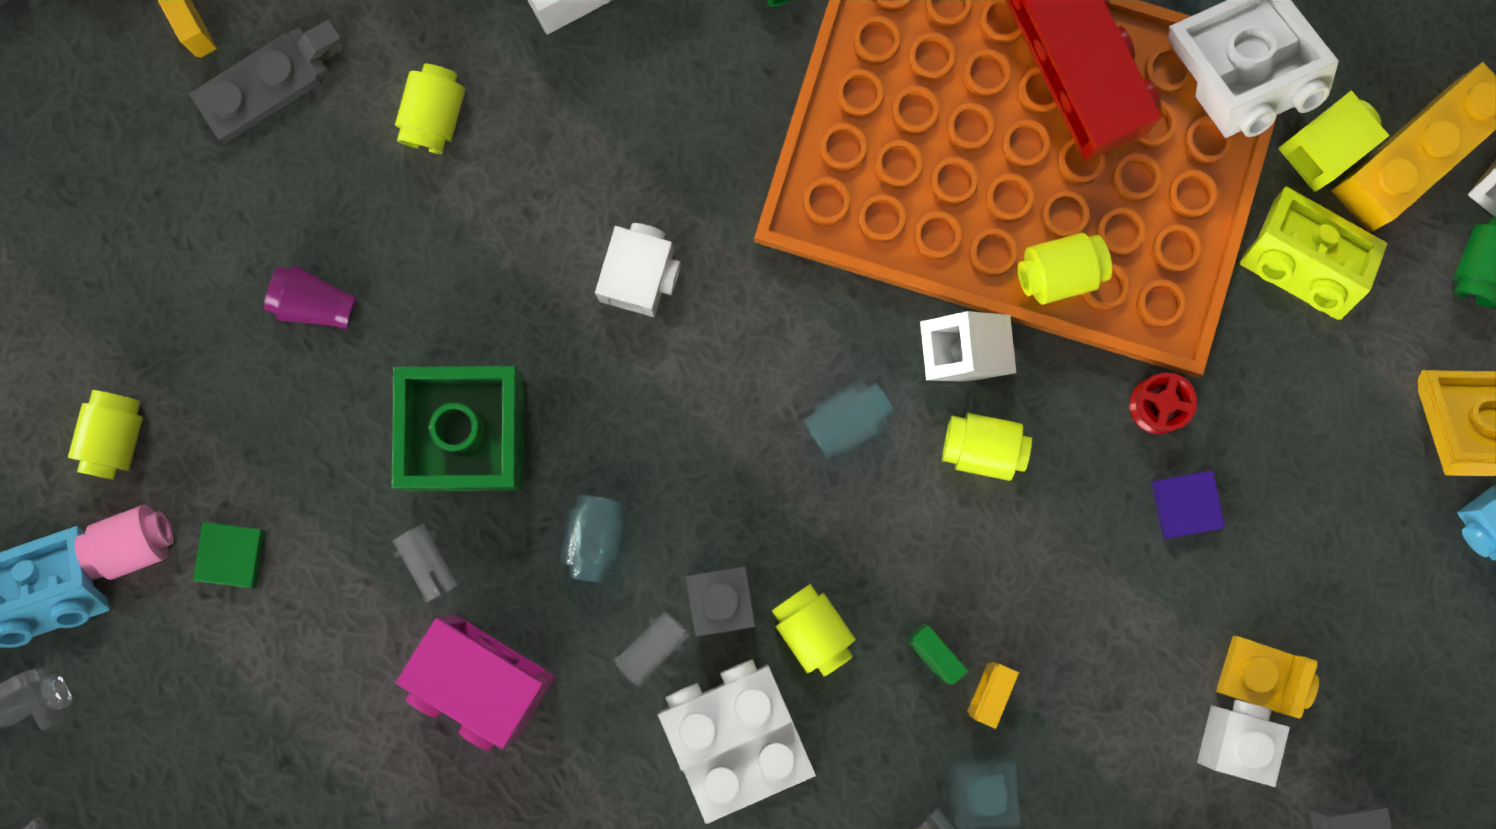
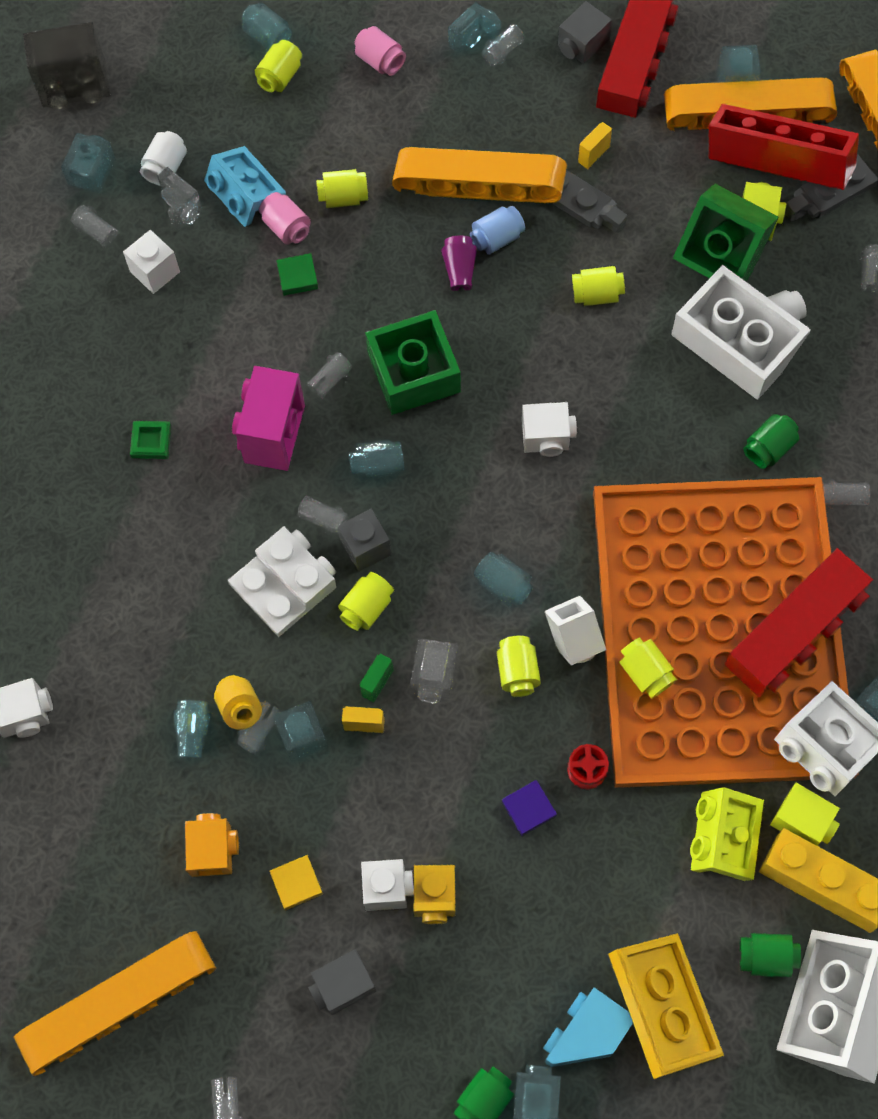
camera: 75 degrees right, 15 degrees down
(121, 781) = (151, 261): none -> white brick
(171, 213) = (480, 174): none -> light orange beam
(274, 222) = (497, 229): none -> light blue brick
(954, 568) = (434, 670): none -> clear brick

